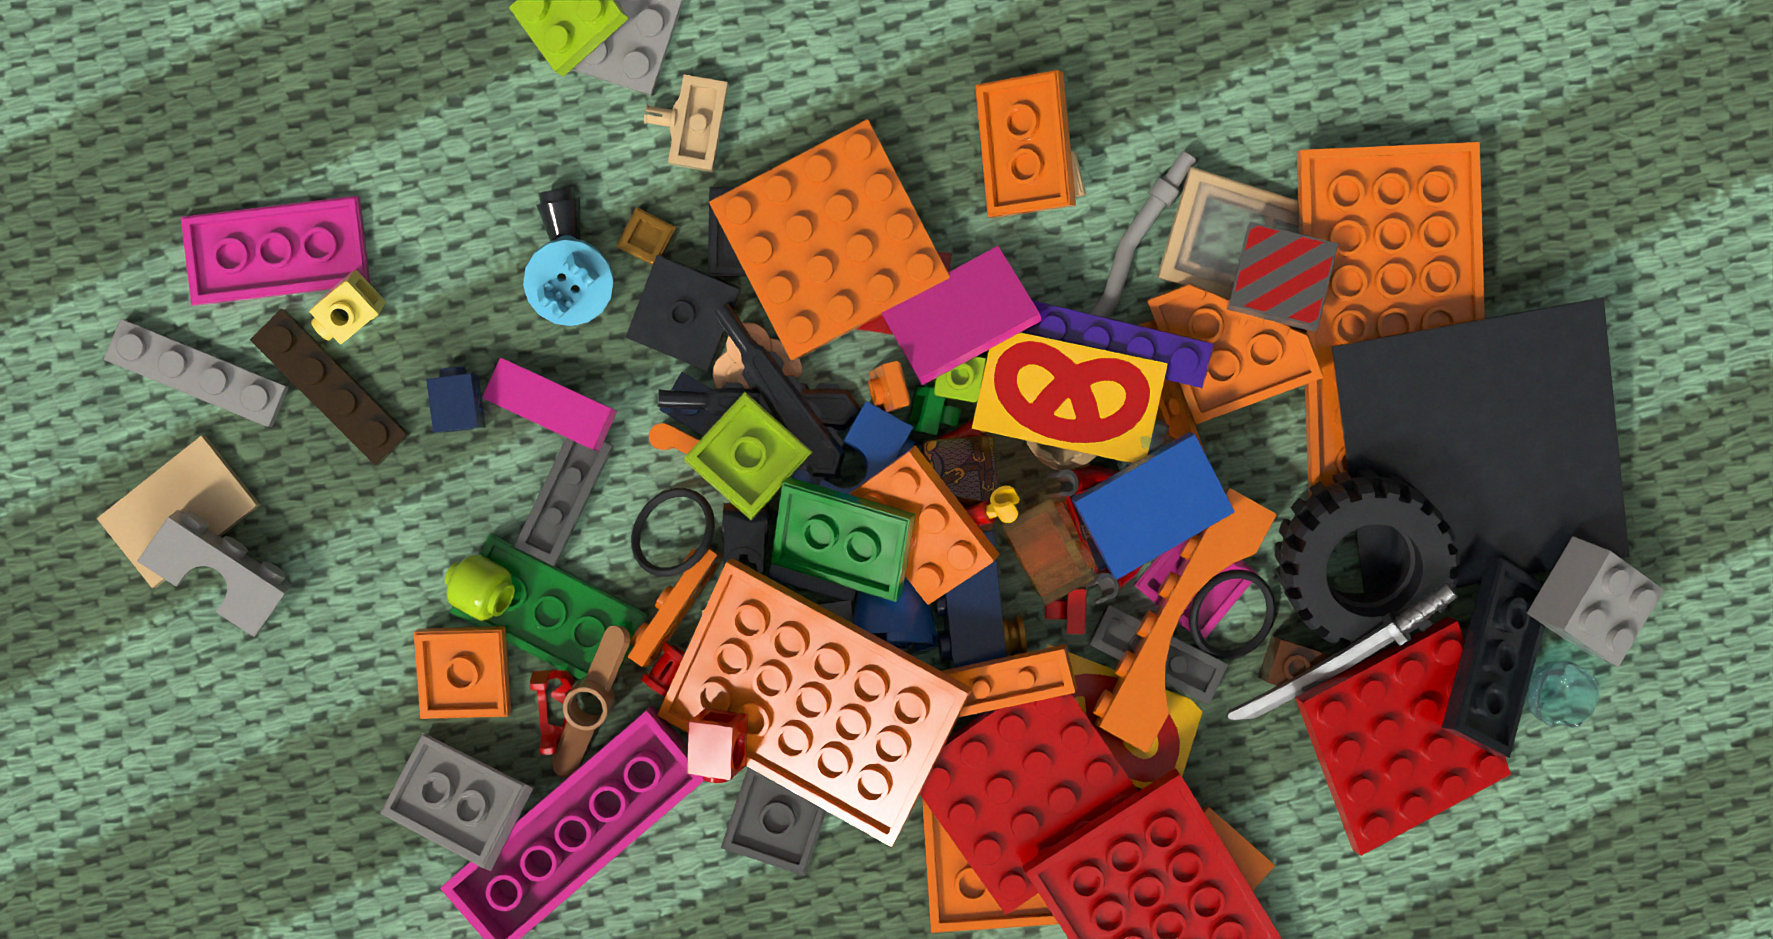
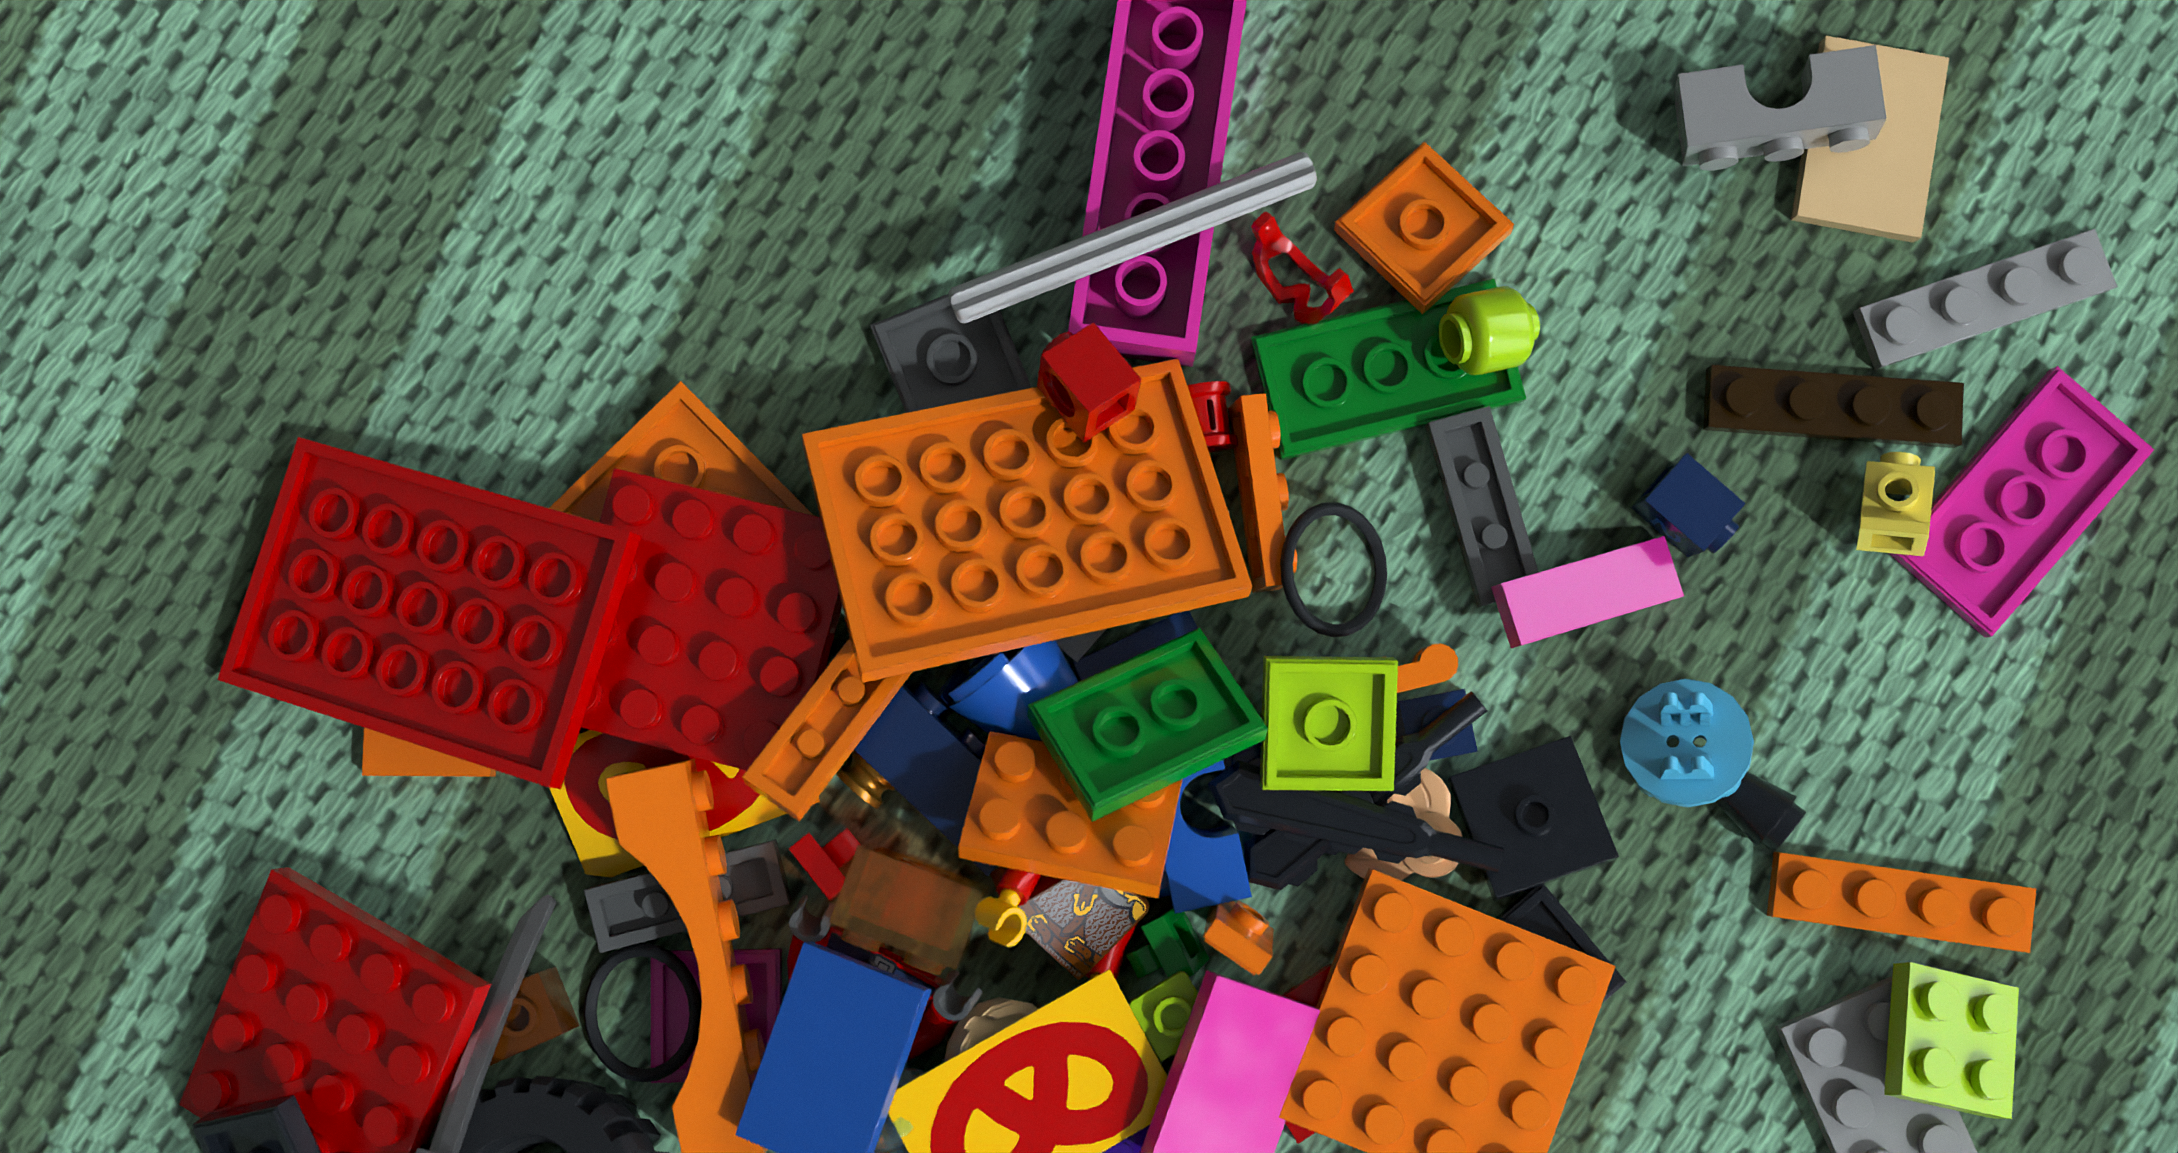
camera: 145 degrees right, 5 degrees down
(456, 801) = (1310, 85): light grey tile -> none
(529, 102) = (1901, 902): none -> orange plate
(598, 682) = (1270, 339): medium nougat piece -> none
(626, 801) = (1132, 237): none -> light grey axle
(646, 236) = (1646, 866): pearl gold tile -> none
(693, 122) = (1707, 1039): tan plate -> none
(745, 535) = (1252, 633): black piece -> none

